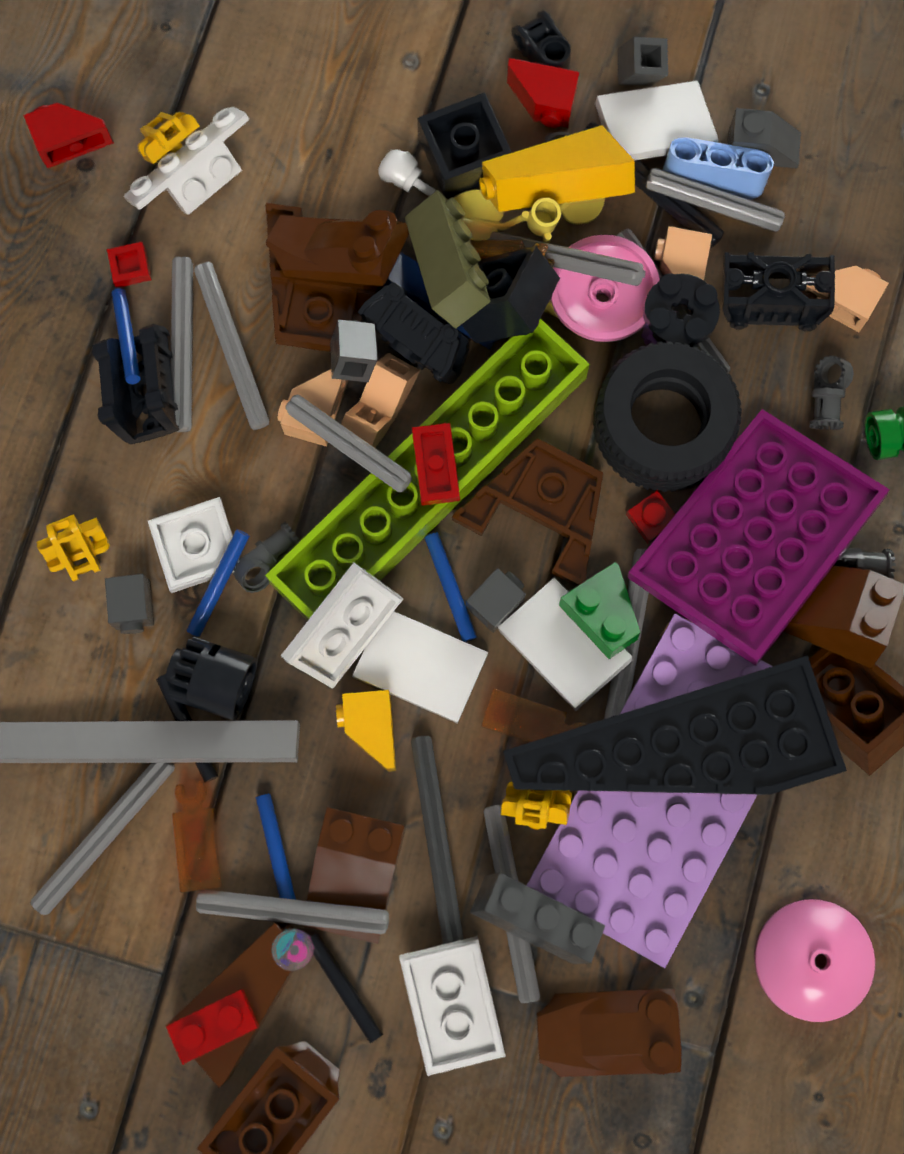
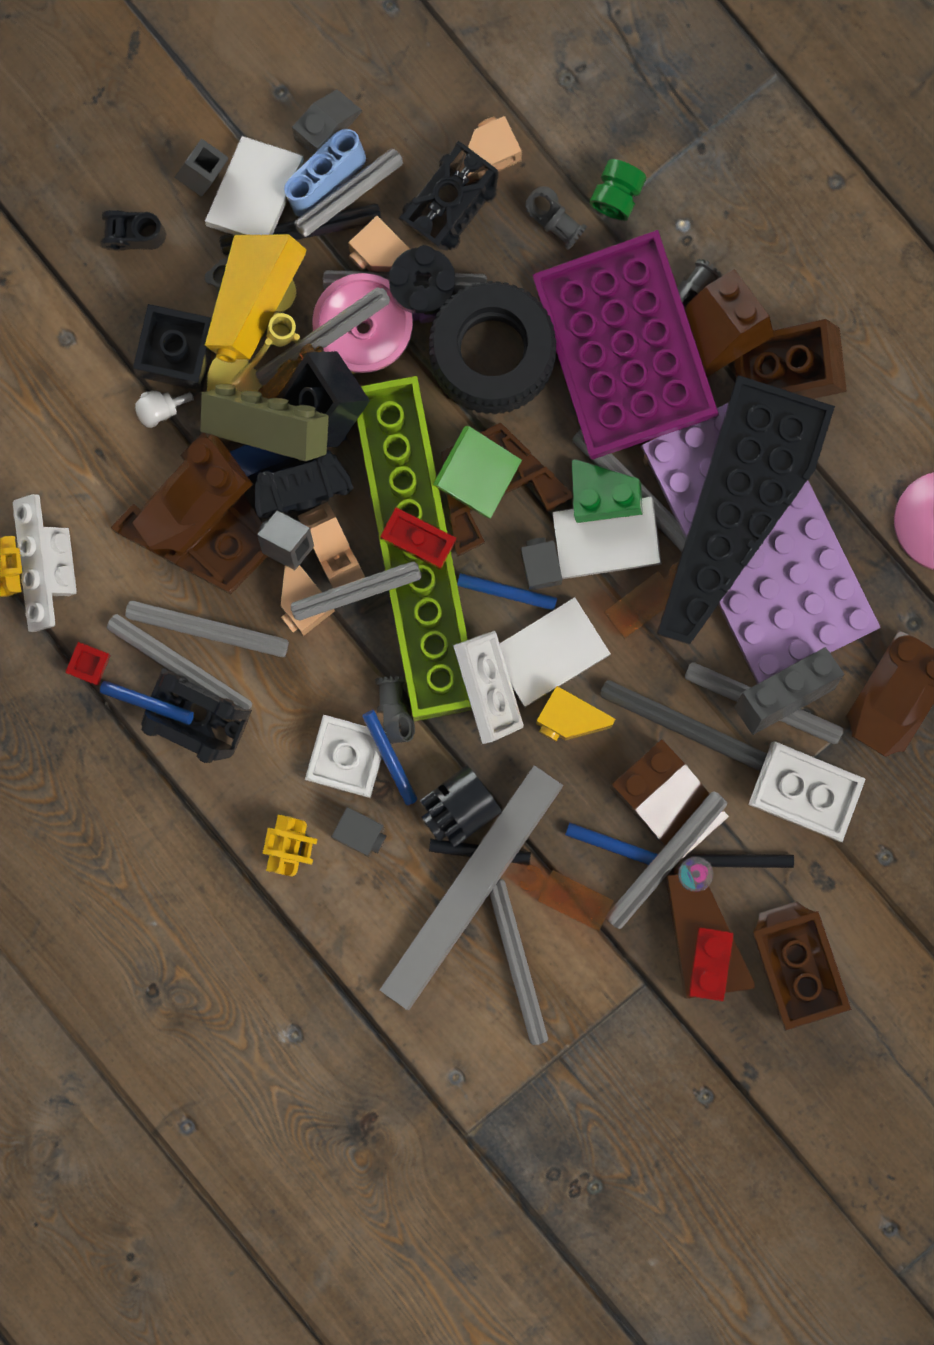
camera: 55 degrees left, 5 degrees up
(536, 807) = (711, 639): yellow piece -> none
(539, 479) = (477, 472): none -> bright green tile
(544, 91) = (170, 257): red slope -> none
(650, 516) = (556, 410): red plate -> none

